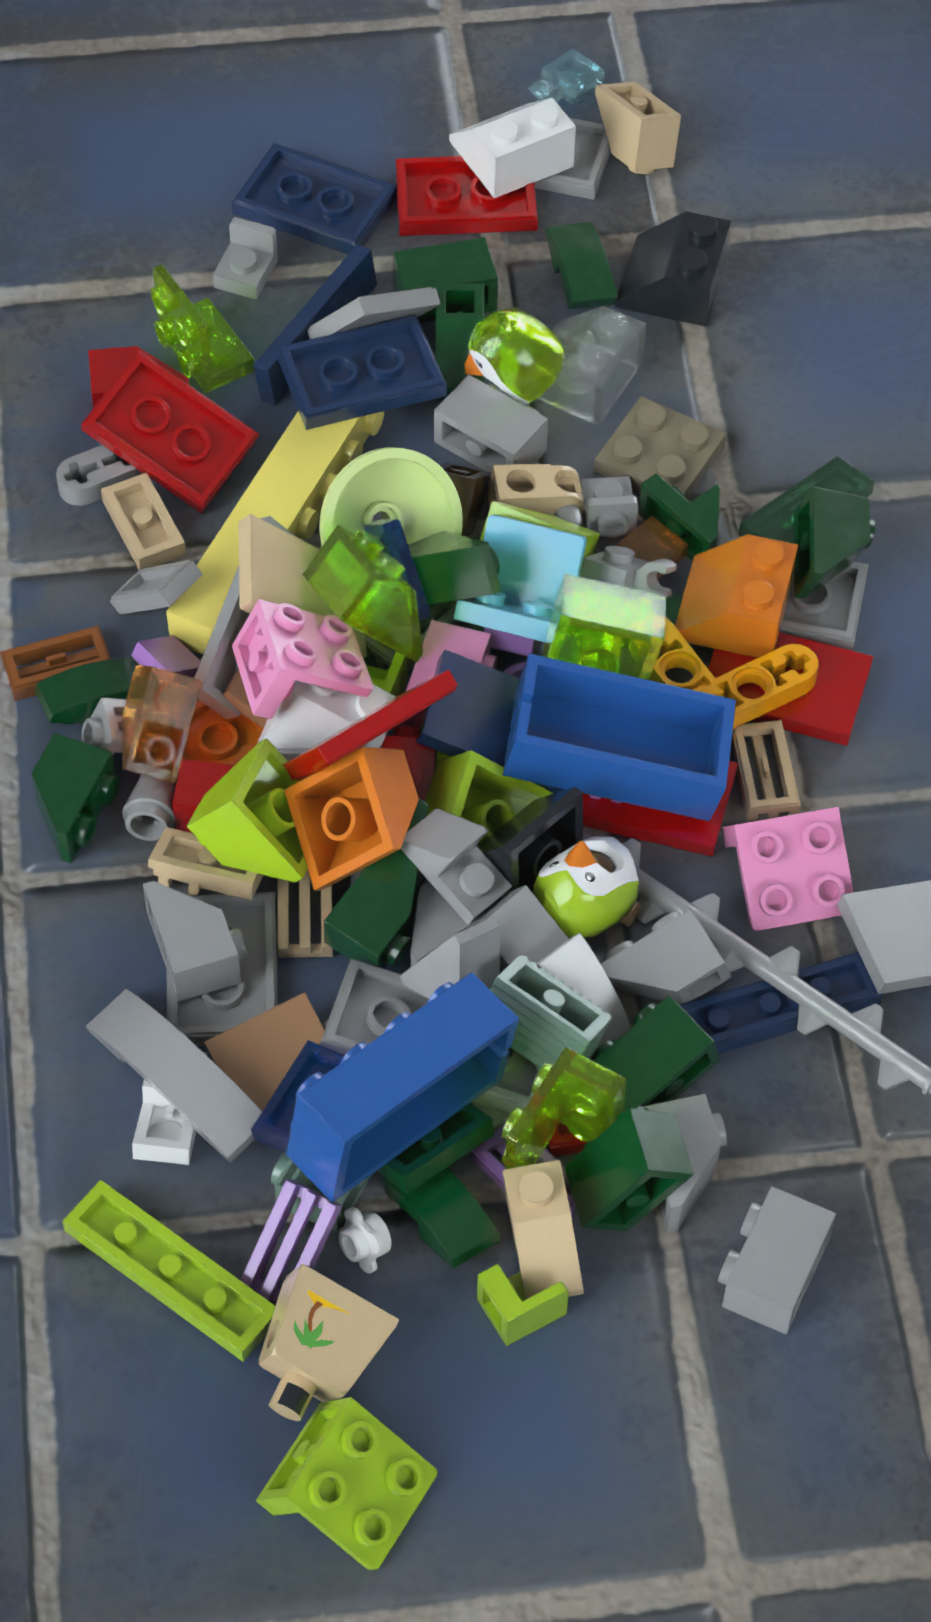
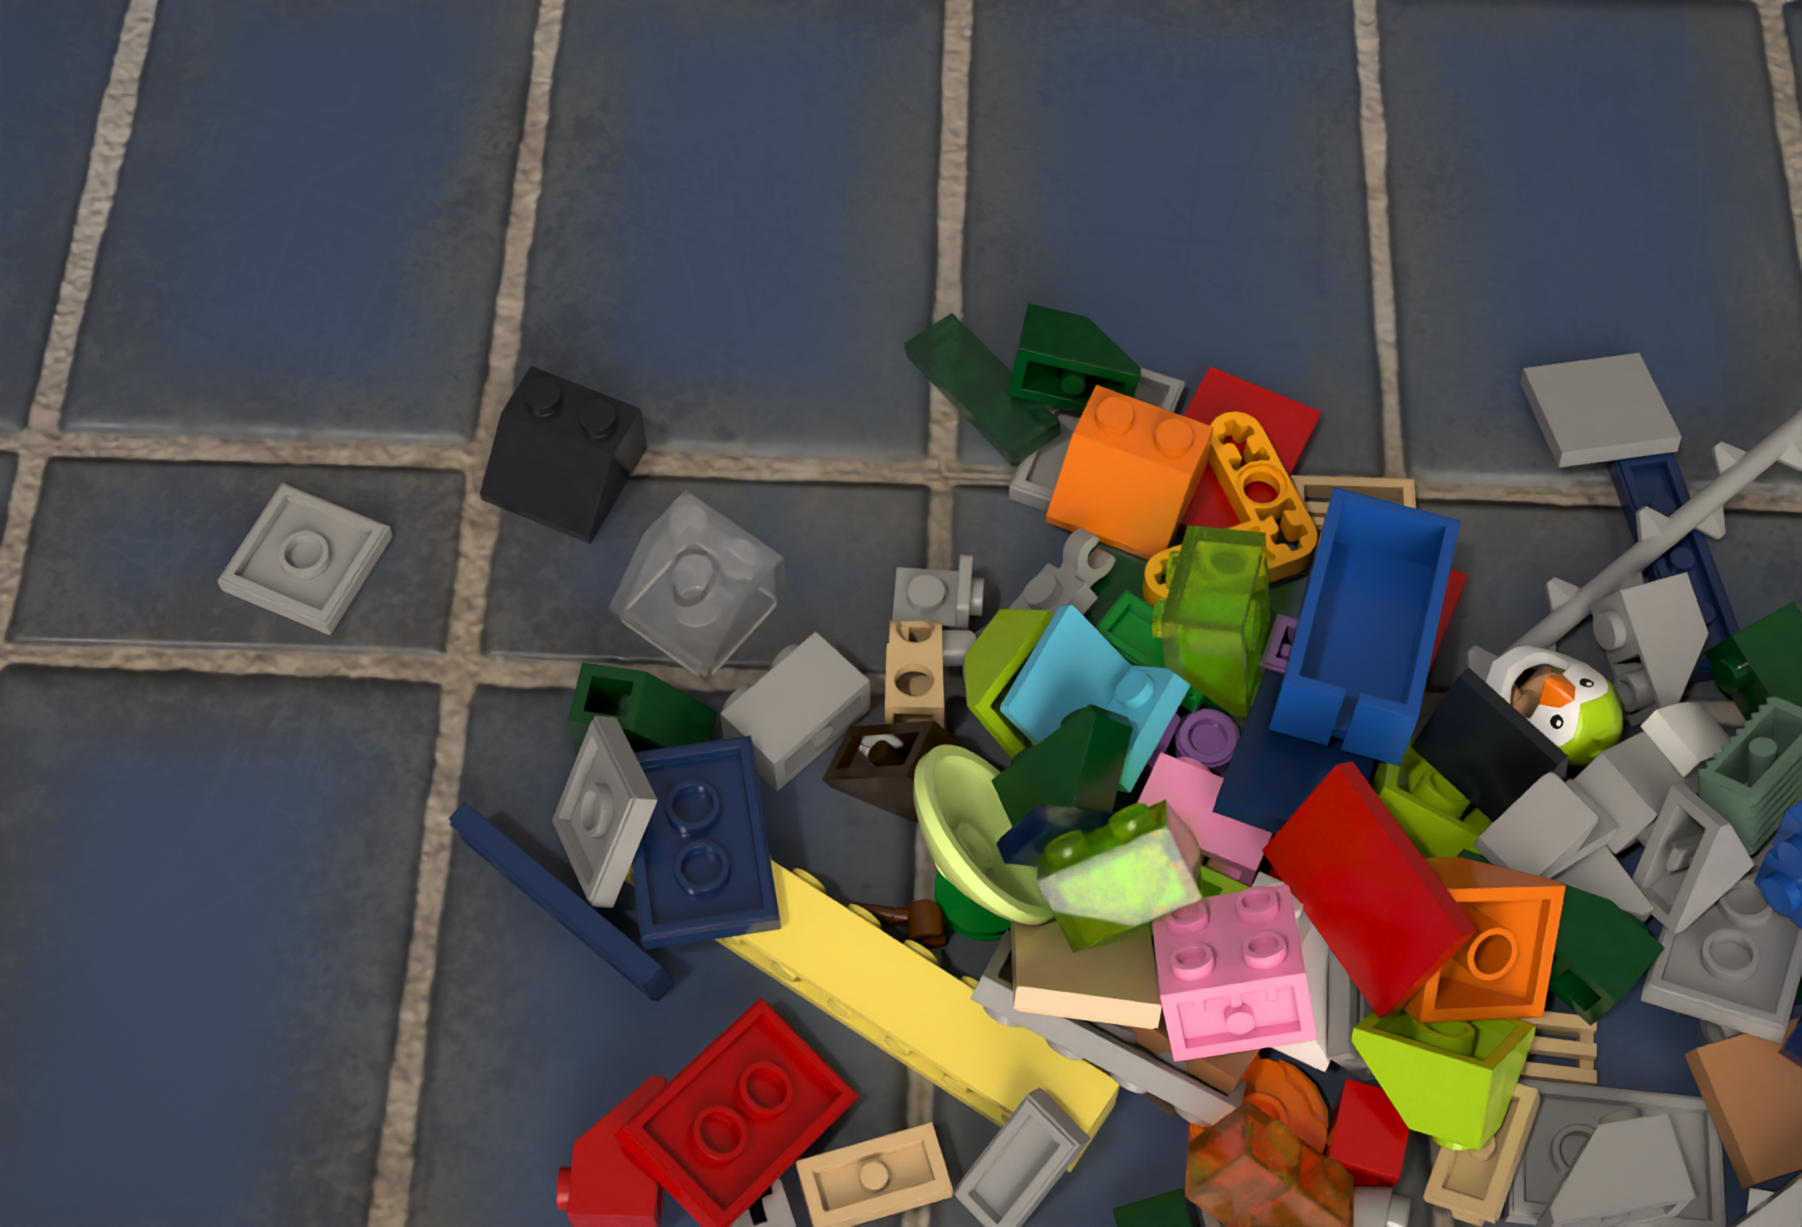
camera: 80 degrees left, 5 degrees up
(166, 654) = (1127, 1170): medium lavender tile -> none
(198, 335) = (548, 1062): clear neon green bracket -> none
(247, 259) = (404, 983): light grey bracket -> none
(314, 199) = (301, 881): dark blue tile -> none
(447, 263) = (515, 727): dark green brick -> none
(449, 198) = (348, 686): red tile -> none
(515, 354) = (711, 646): clear neon green piece -> none
(518, 146) = (296, 596): white slope -> none
(568, 77) = (180, 520): clear light blue plate -> none
(582, 264) = (511, 558): dark green slope -> none
(638, 126) = (307, 447): tan slope -> none
(654, 542) = (1007, 564): clear orange tile -> none
(662, 443) = (854, 532): dark tan plate -> none
(691, 521) = (993, 510): dark green slope -> none
(791, 867) = (1499, 493): bright pink bracket -> none

